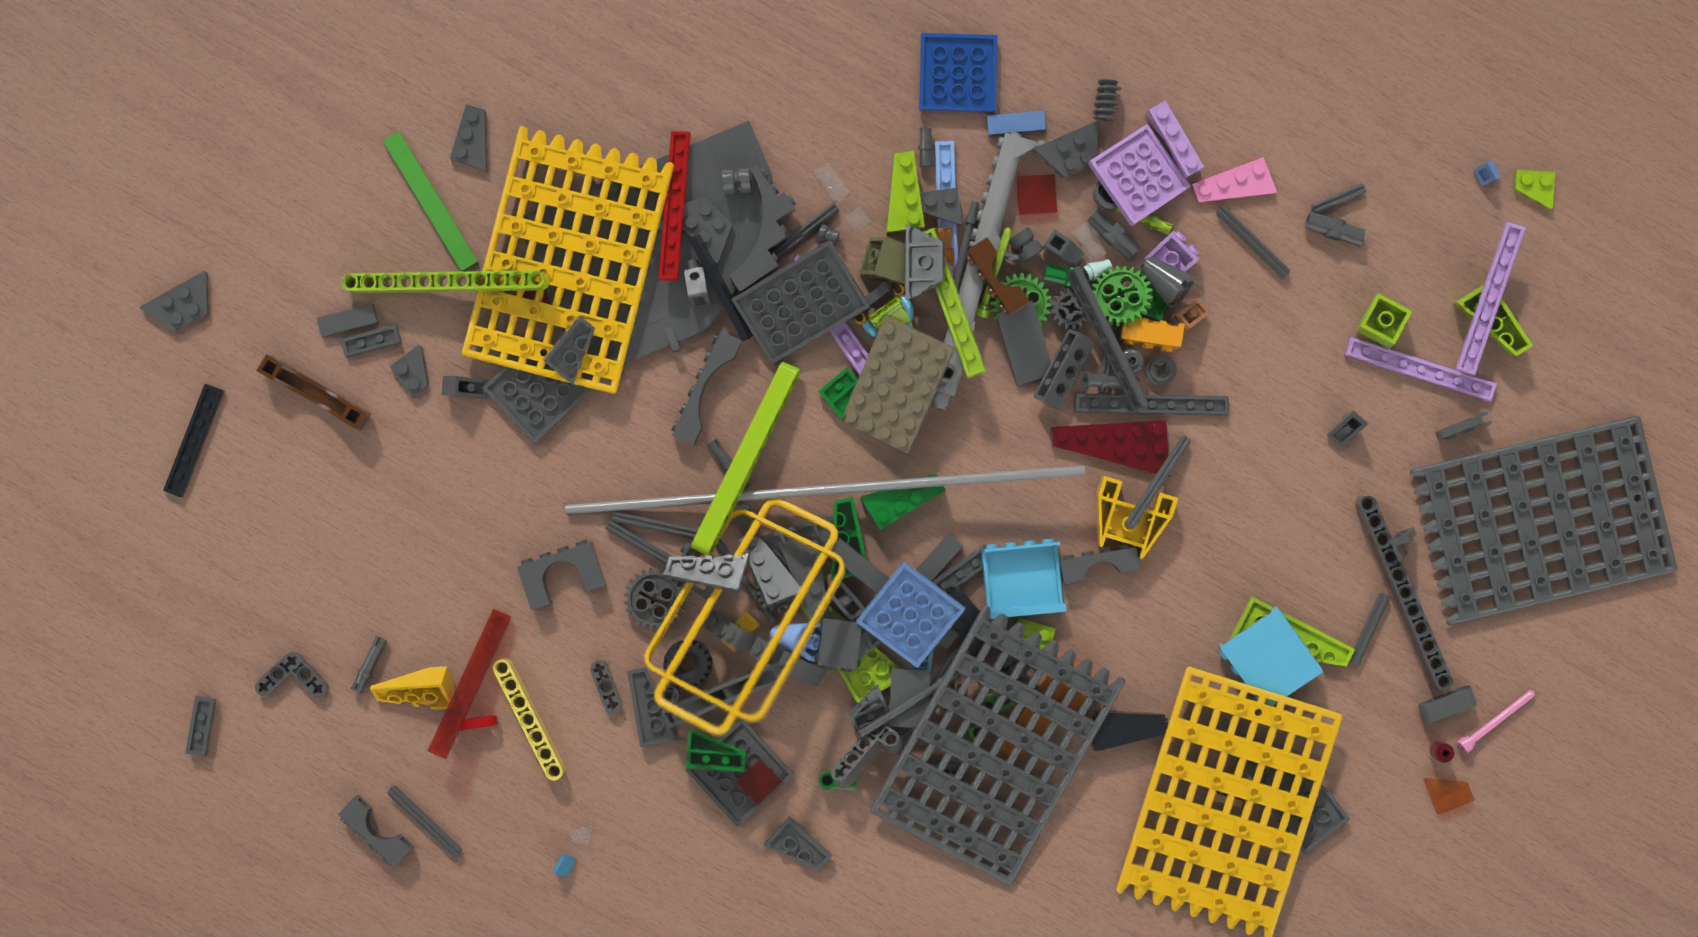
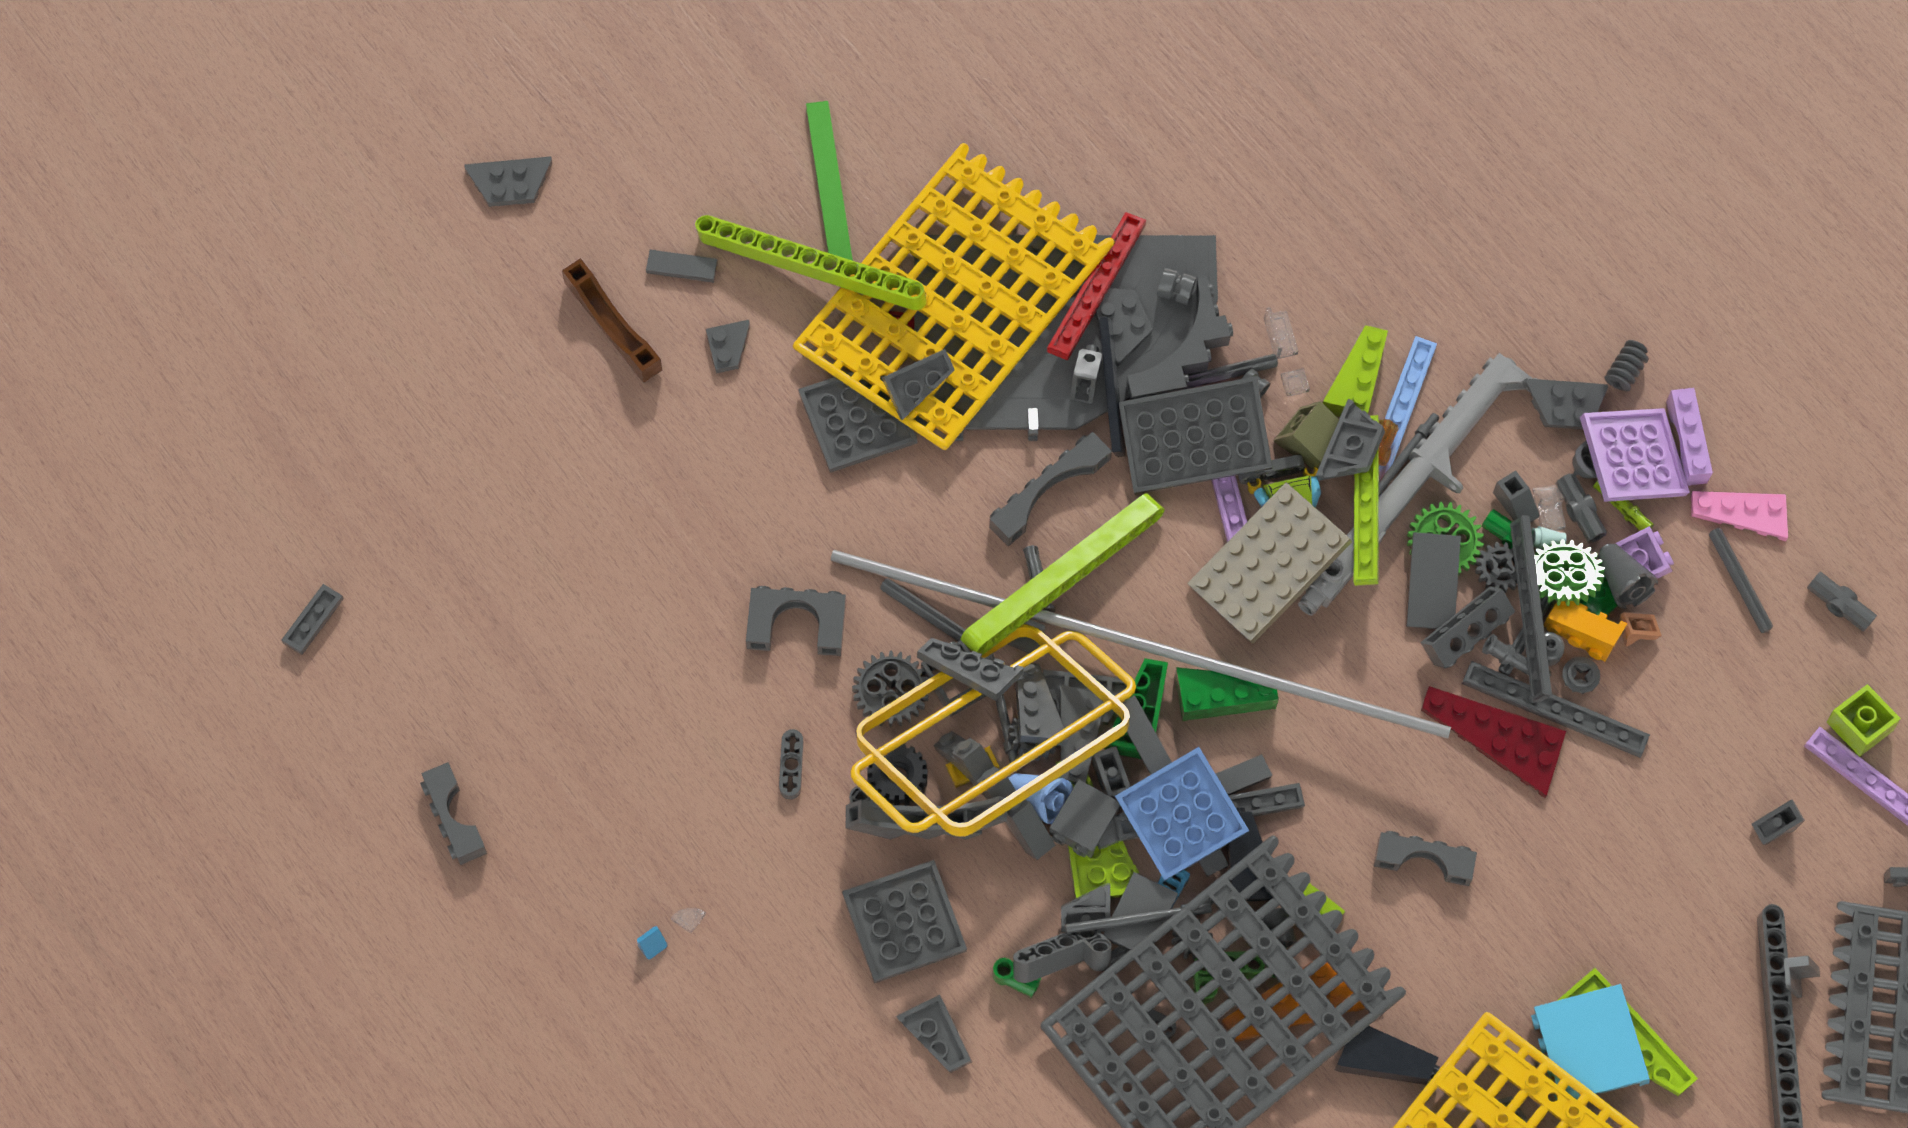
camera: 25 degrees right, 20 degrees down
(193, 440) = (453, 321): black tile -> none
(295, 670) = (446, 602): dark grey beam -> none
(368, 665) = (528, 633): dark grey pin -> none
(371, 341) = (697, 297): dark grey tile -> none
(419, 816) = (513, 828): dark grey axle -> none
(427, 687) = (584, 680): yellow wedge -> none
(464, 387) = (778, 381): dark grey slope -> none
(469, 684) = (638, 692): clear red plate -> none
(471, 139) = (900, 141): dark grey wing -> none
(479, 722) = (616, 739): red beam -> none
(529, 729) = (690, 772): light yellow beam -> none
(637, 542) = (895, 619): dark grey axle -> none
(648, 715) = (827, 814): dark grey wing -> none
(712, 754) = (884, 881): green wedge -> none
(759, 781) = (922, 938): clear red piece -> none
(839, 391) = (1197, 551): green wing -> none
(925, 147) = (1401, 337): dark grey pin -> none
(942, 204) = (1397, 401): dark grey wing -> none
(958, 72) = (1469, 276): blue plate -> none
(983, 307) = (1400, 527): lime piece -> none
(1010, 297) = (1436, 517): reddish brown arch -> none
(1016, 122) = (1522, 354): medium blue tile -> none
(1022, 578) = (1330, 836): medium azure panel -> none
(1025, 244) = (1475, 478): dark grey wheel -> none
(1036, 194) = (1509, 435): clear red tile -> none
(1113, 514) = (1481, 822): yellow wedge -> none
(1157, 482) = (1529, 789): dark grey axle -> none
(1338, 198) = (1858, 572): dark grey axle -> none
(1369, 628) = (1724, 1064): dark grey axle -> none

